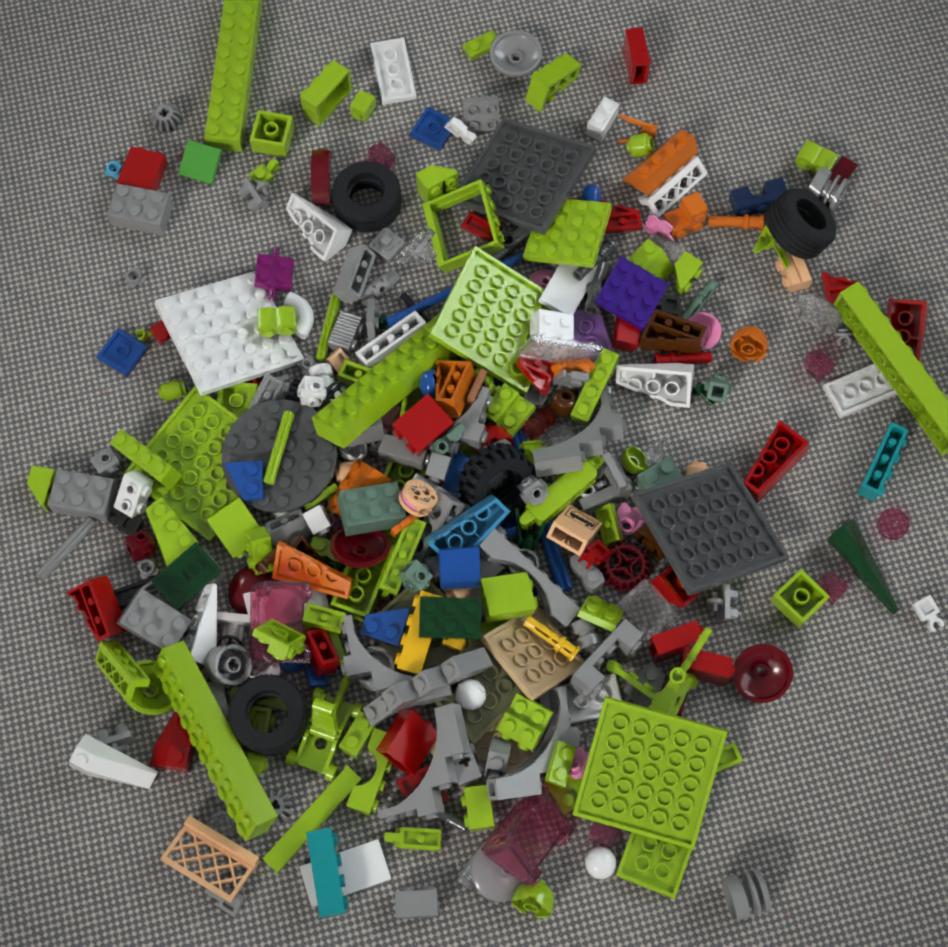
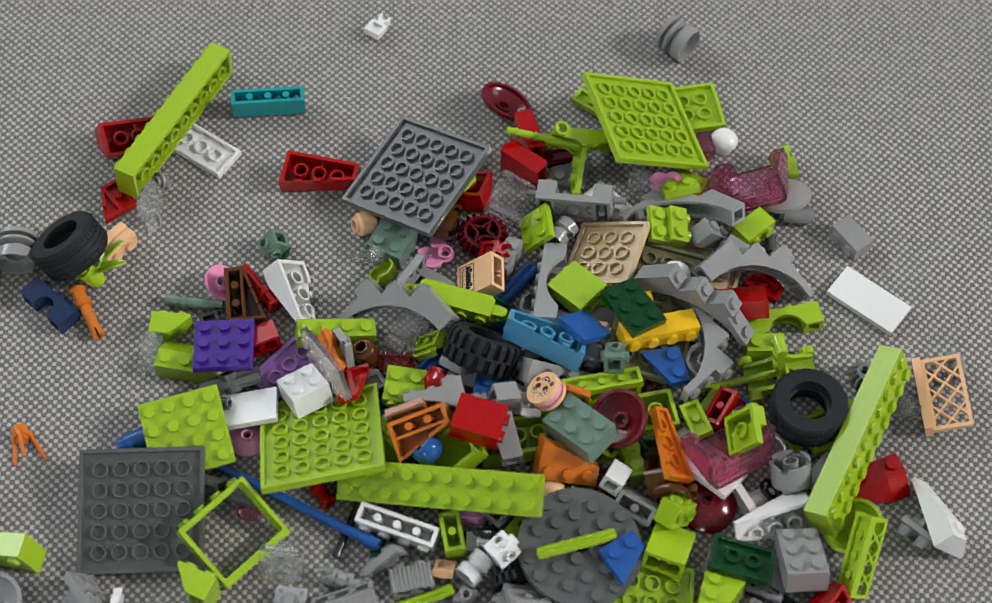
camera: 125 degrees left, 10 degrees down
(312, 819) = (840, 344): lime tile -> none
(326, 873) = (883, 302): teal brick -> none
(415, 838) = (808, 267): lime hinge -> none
(453, 434) = (473, 389): sand green plate -> none
(478, 226) = (217, 529): red tile -> none
(533, 490) = (475, 310): light grey brick -> none
(560, 643) = (584, 241): yellow pin -> none
(602, 119) = (29, 480): white brick -> none
(610, 528) = (449, 266): lime plate -> none
(623, 219) = (130, 401): red wing -> none
(640, 145) = (43, 431): lime head -> none
(656, 226) = (133, 372): bright pink plate -> none
(662, 162) = (54, 403): orange slope -> none
(673, 180) = (73, 384): white fence -> none
(688, 217) = (106, 349): orange brick -> none
(749, 343) = (212, 241): orange cylinder -> none
(799, 598) = (427, 103): lime brick -> none
(818, 365) = (202, 184): clear pink brick -> none
(833, 586) = (401, 91): clear pink brick -> none
(854, 550) = (359, 91): dark green wedge -> none
(896, 516) = (319, 73): clear pink piece -> none

